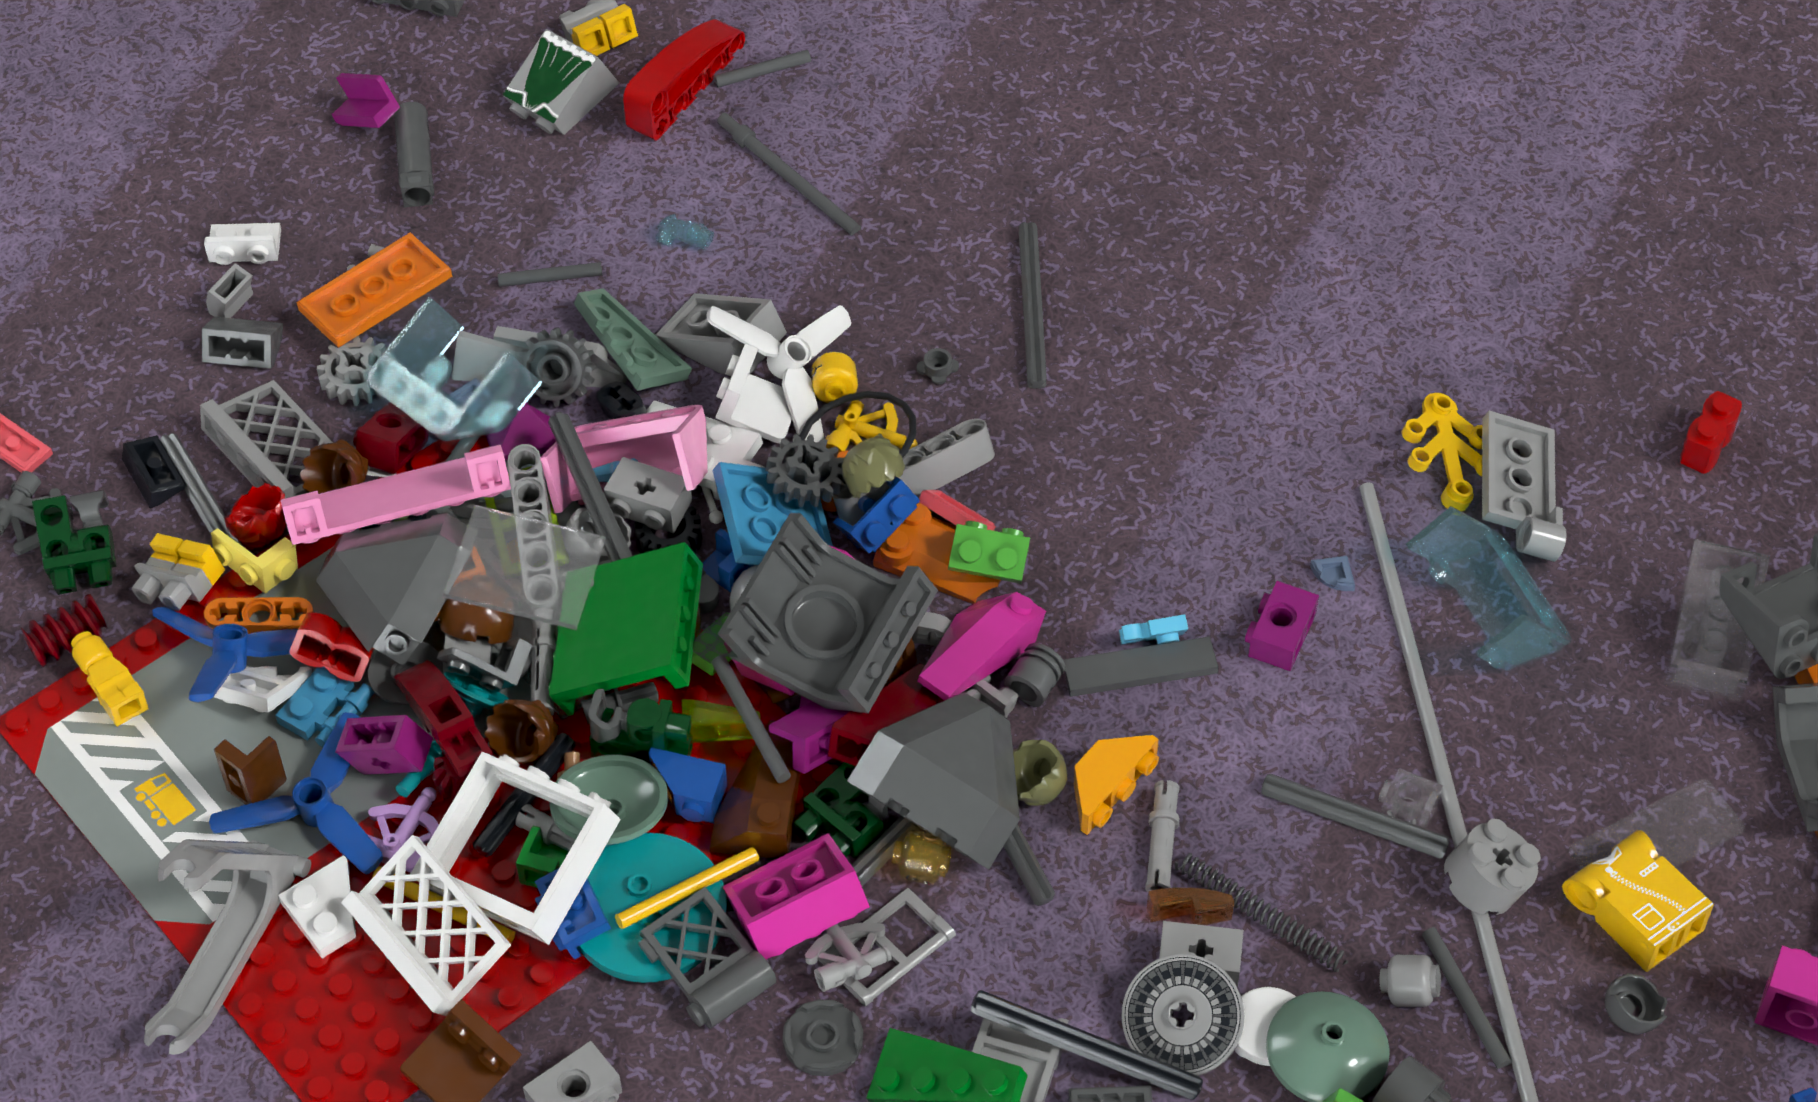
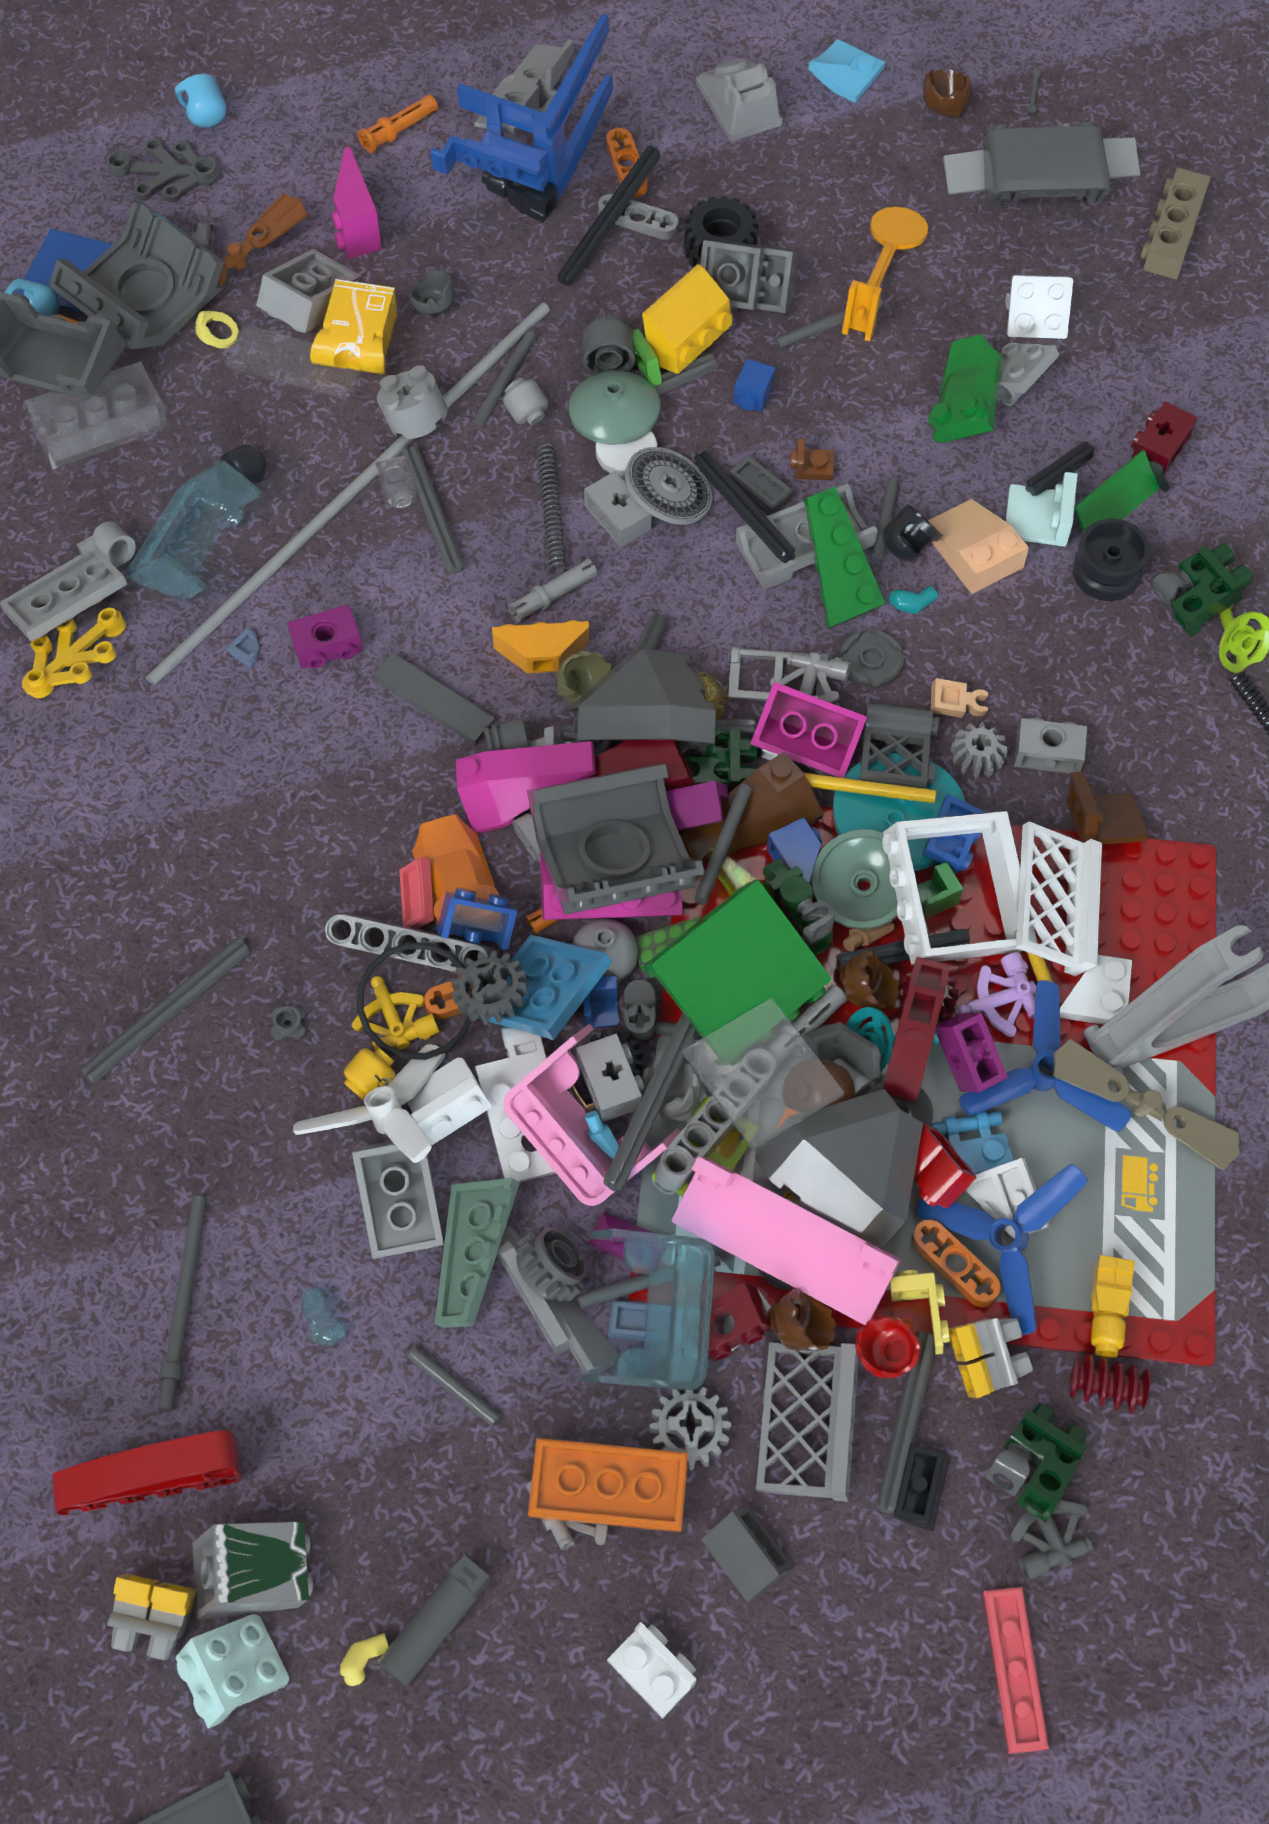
camera: 135 degrees left, 10 degrees up
(229, 292) = (717, 1617): light grey piece -> none
(252, 775) = (1081, 1112): reddish brown panel -> none
(267, 816) = (1200, 1134): none -> dark tan piece
(368, 101) = (425, 1714): magenta panel -> none
(444, 111) = (358, 1656): none -> light yellow arm
(508, 42) = (230, 1668): none -> light aqua bracket
(619, 401) = (526, 1194): black beam -> none
(638, 1041) = (967, 755): none -> light grey gear
(708, 1059) = (953, 700): none -> light nougat plate
(762, 68) = (70, 1431): dark grey bar -> none
(871, 465) = (454, 930): olive hair -> none
(989, 552) = (439, 829): bright green bracket -> none
(1163, 630) = (396, 703): medium azure plate -> none
(1200, 904) = (584, 534): clear orange slope -> none
(1546, 694) = (247, 462): none -> black head
(1750, 905) = (302, 289): none -> light grey slope
(1774, 806) = (204, 334): none -> light yellow piece

